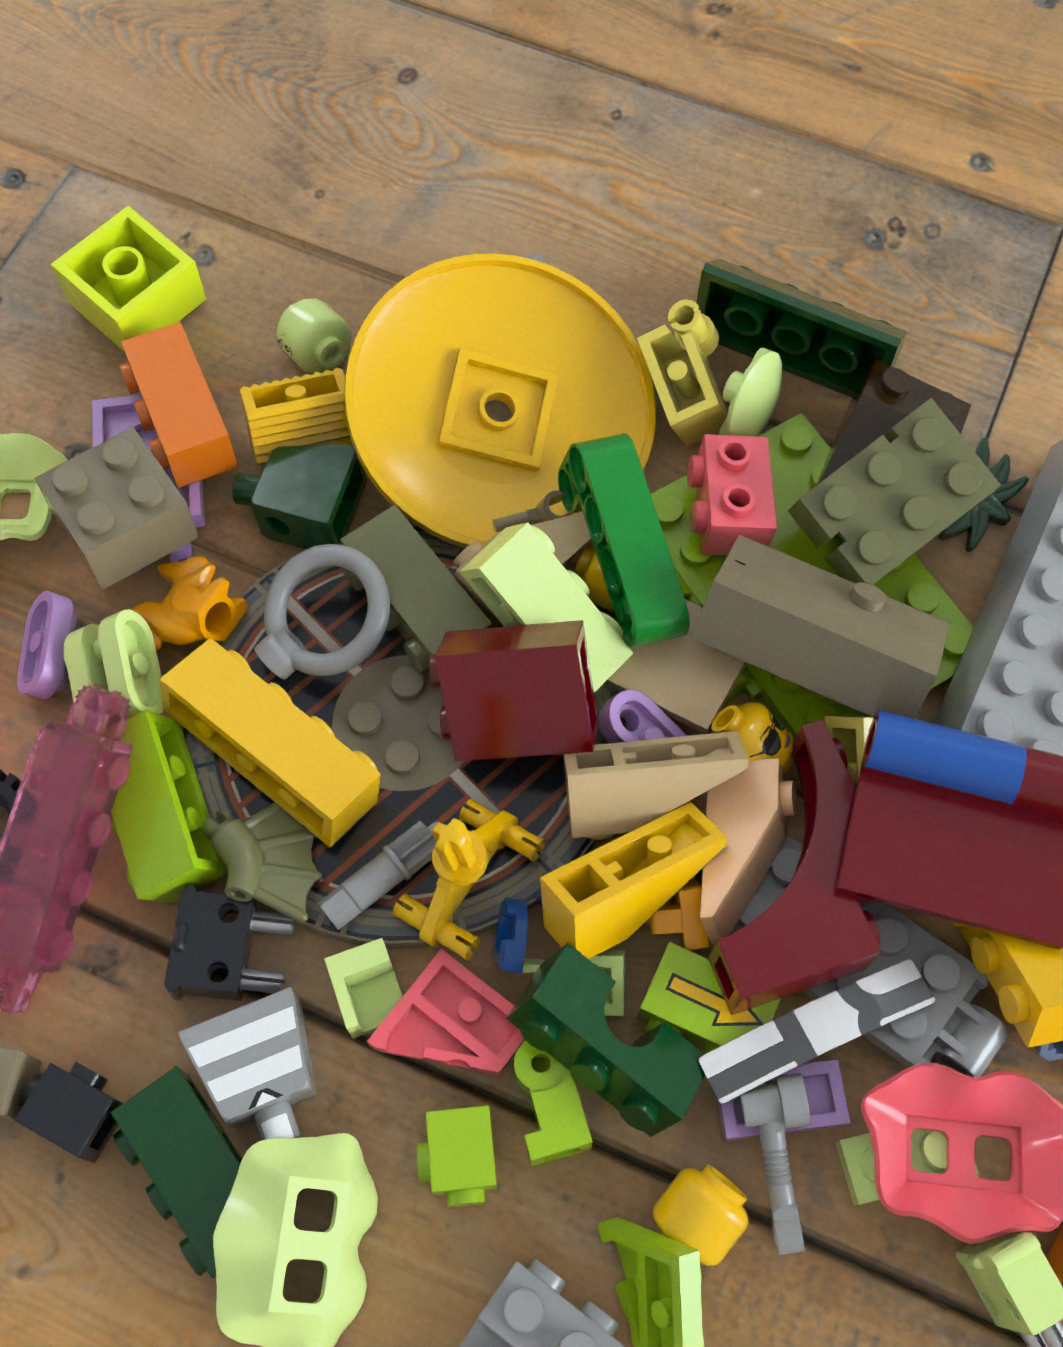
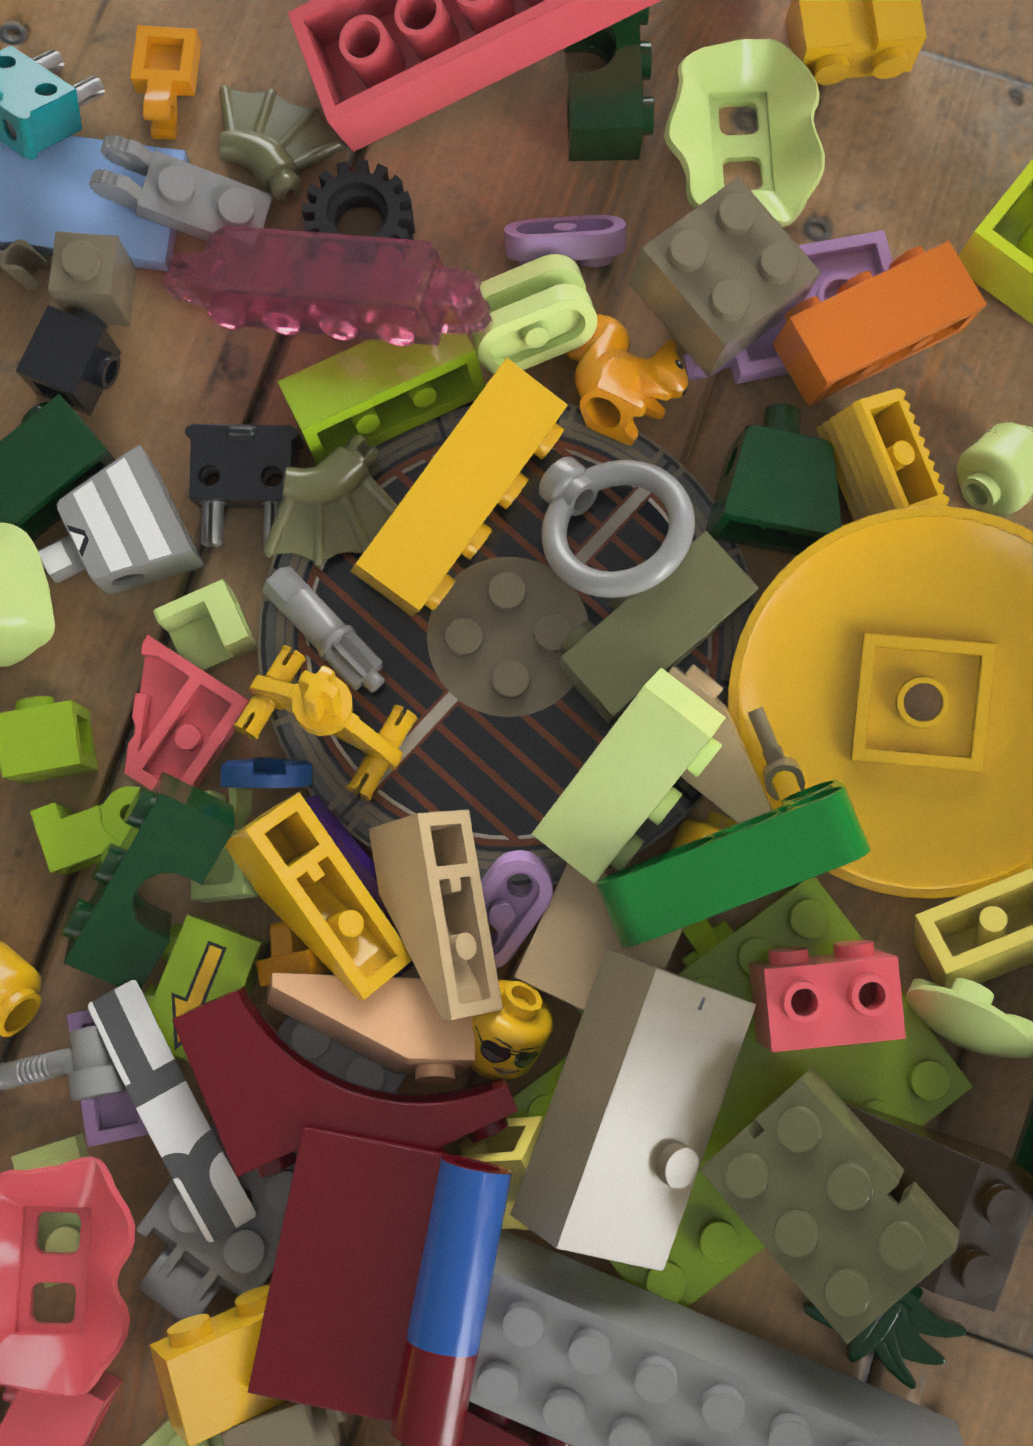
camera: 85 degrees right, 15 degrees up
(516, 691) = (524, 750): dark red brick -> none

